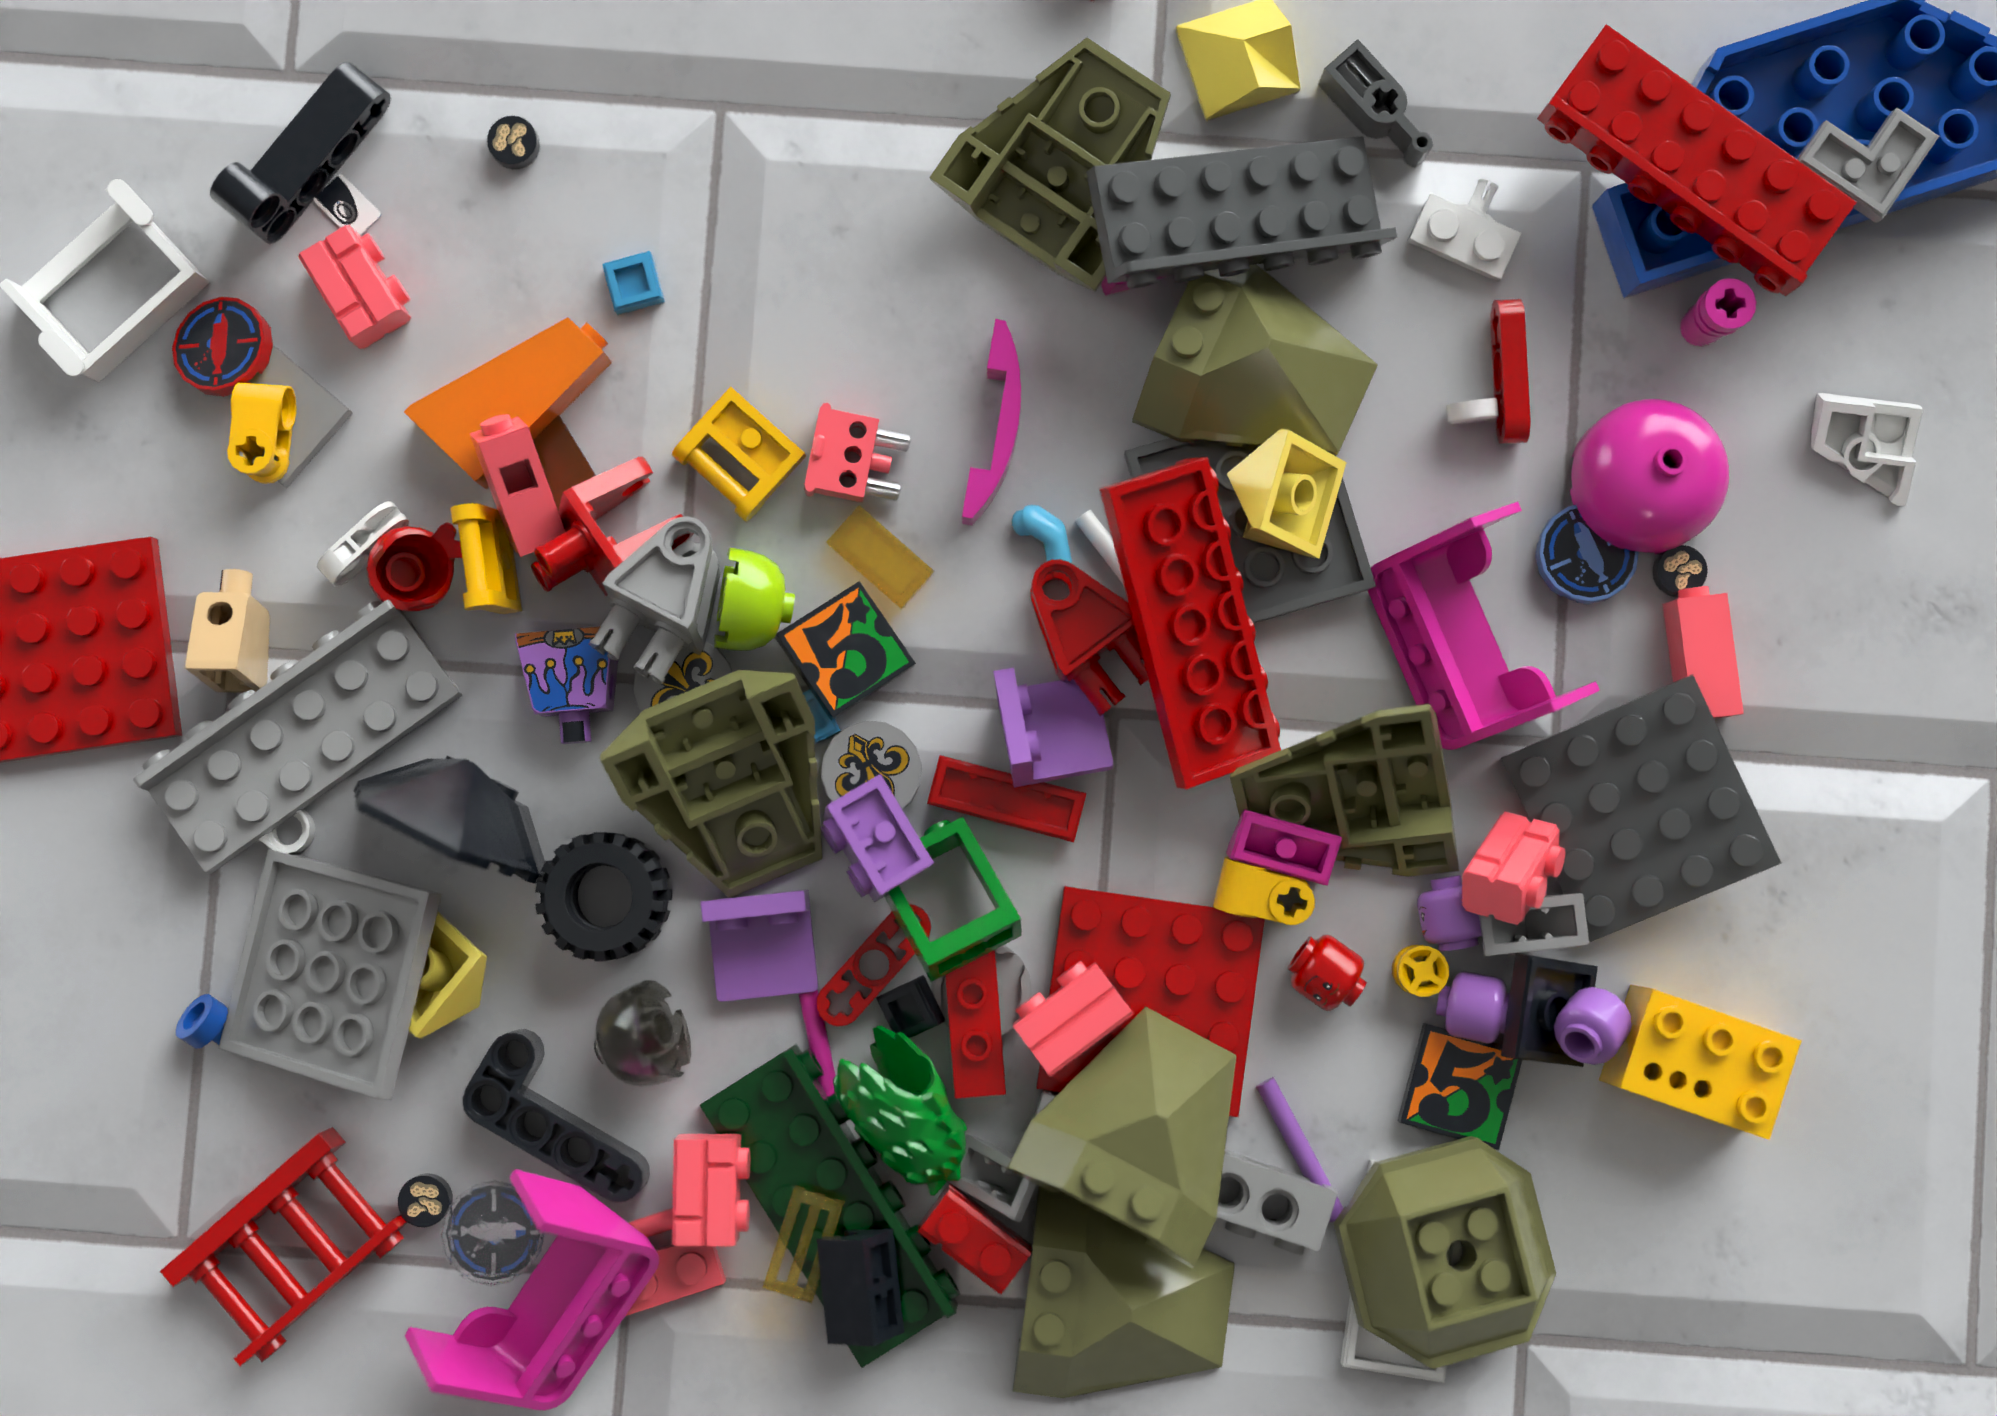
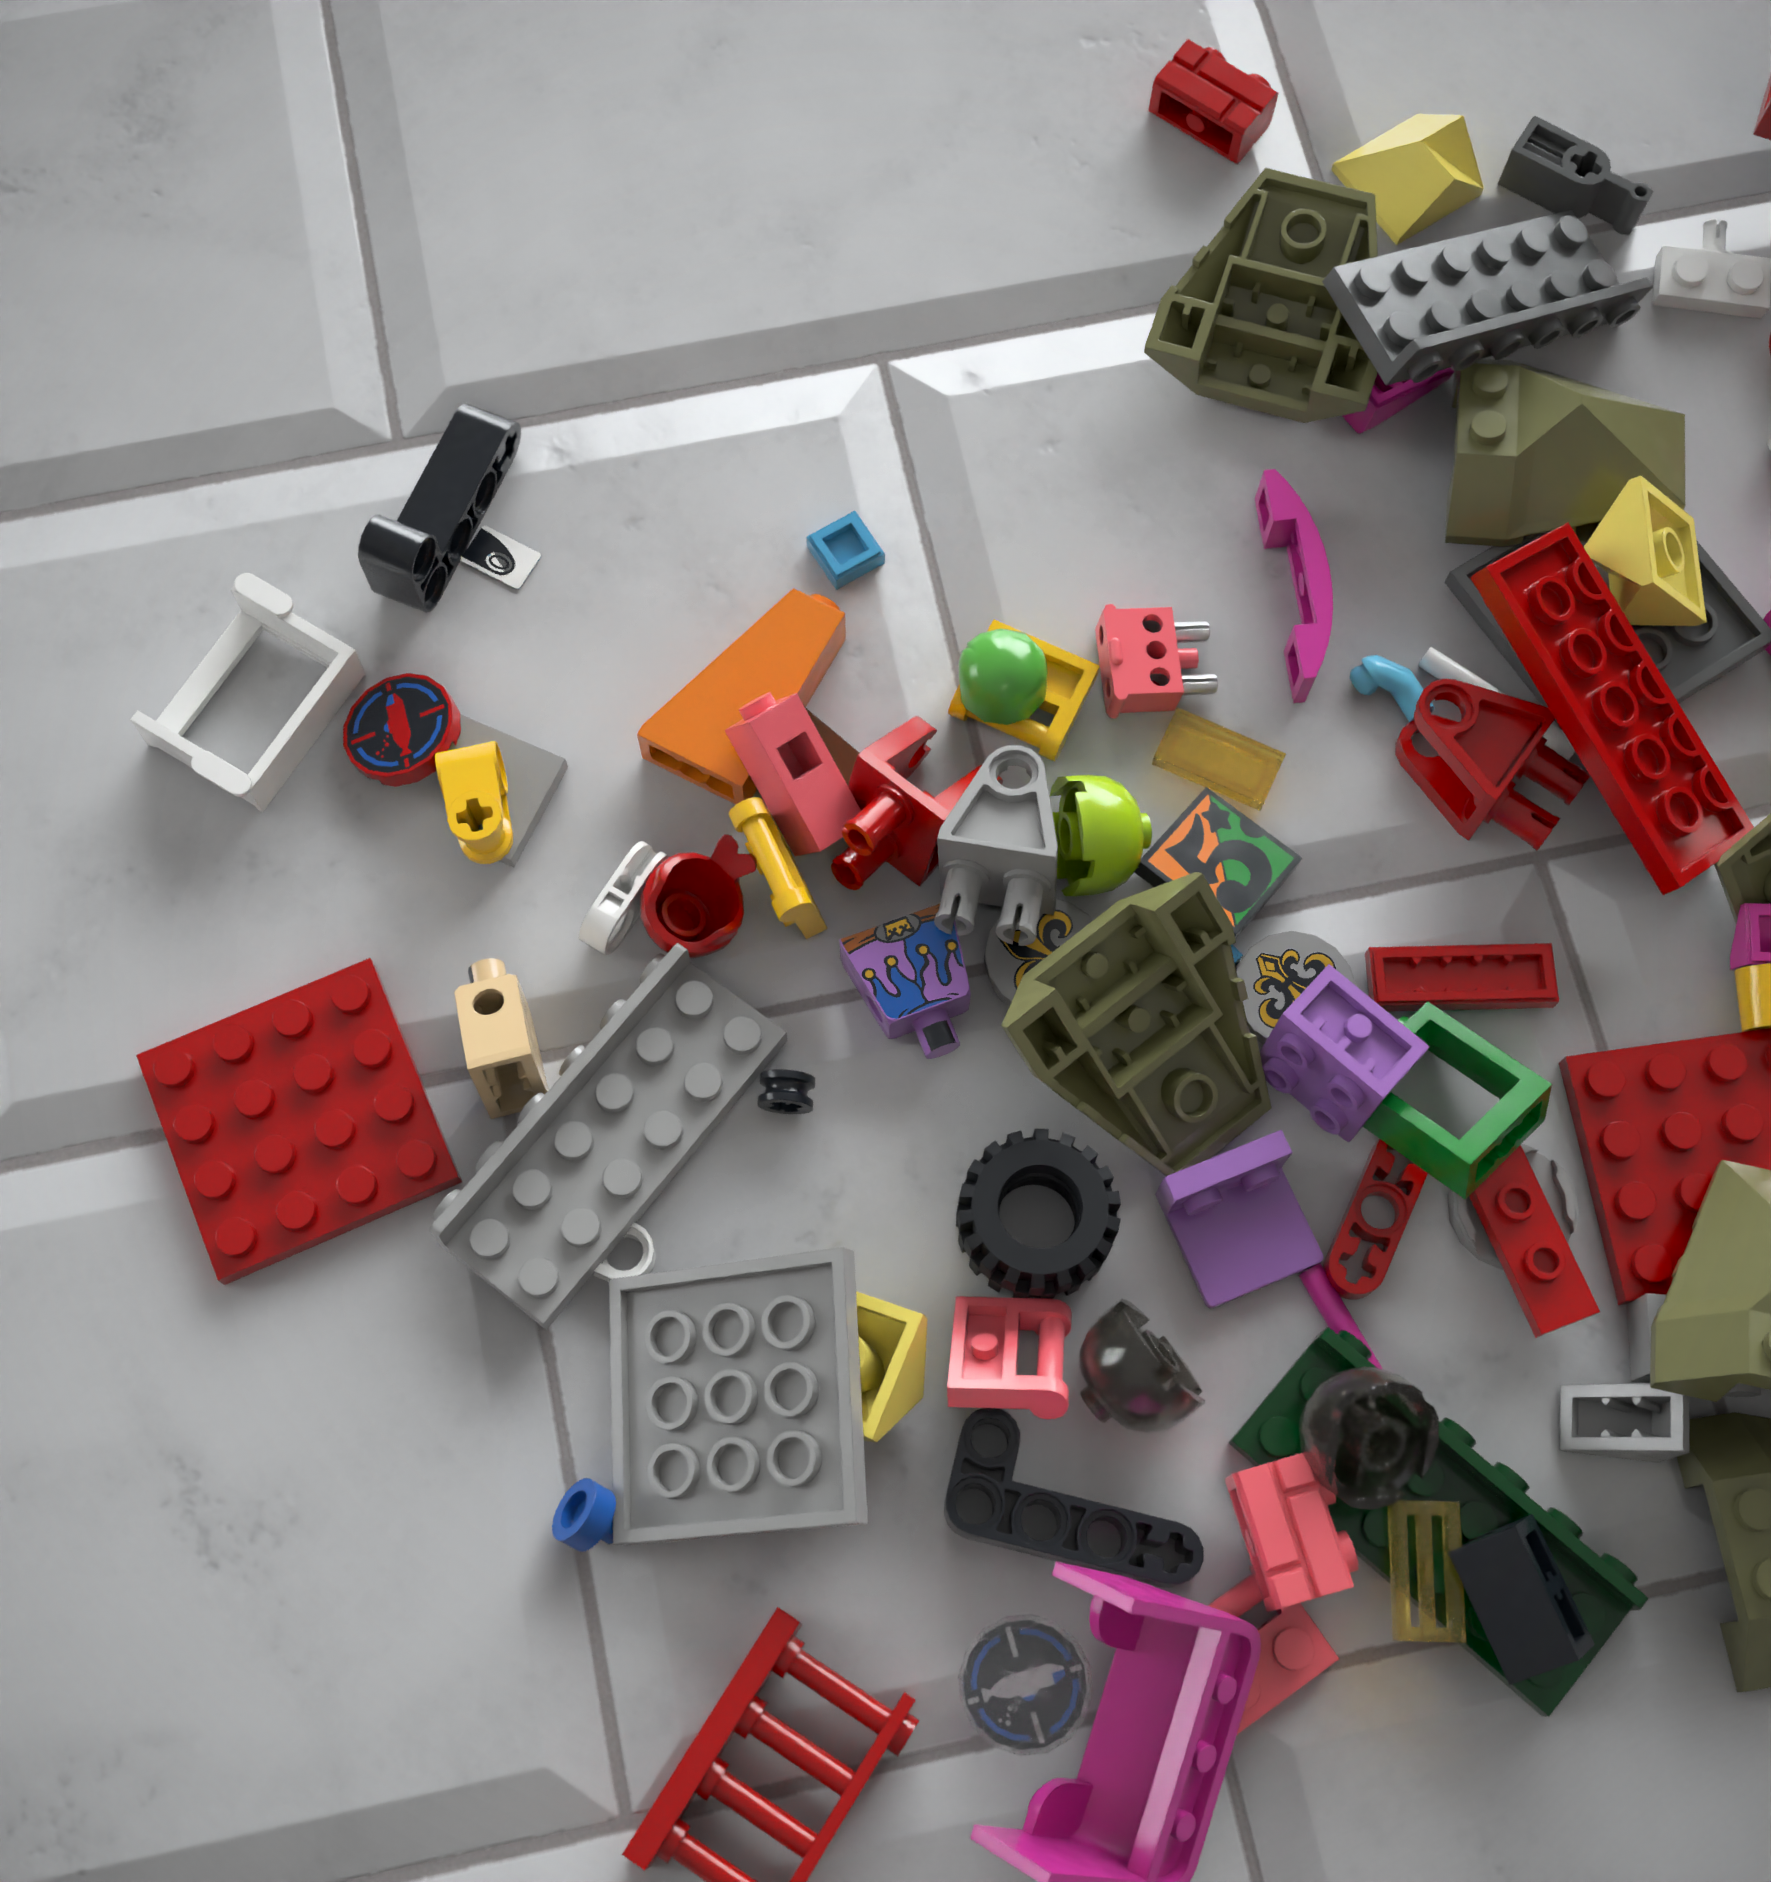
camera: 15 degrees left, 15 degrees down
(355, 286) = (539, 626): coral brick -> none
(424, 1200) = (927, 1666): tile -> none
(445, 740) = (786, 1091): none -> black bush
(456, 813) = (834, 1139): black wedge -> none
(513, 142) = (669, 444): tile -> none
(533, 988) = (987, 1350): none -> coral plate
(717, 443) = (1002, 676): none -> bright green hair
(784, 1141) = (1368, 1435): none -> clear smoke cylinder
(903, 1111) = (1490, 1366): green head -> none
(911, 1008) = (1442, 1250): black tile -> none
(975, 1238) = (1630, 1502): red brick -> none
(1050, 730) = (1482, 882): medium lavender bracket -> none
(1070, 1017) = (1646, 1192): coral brick -> none

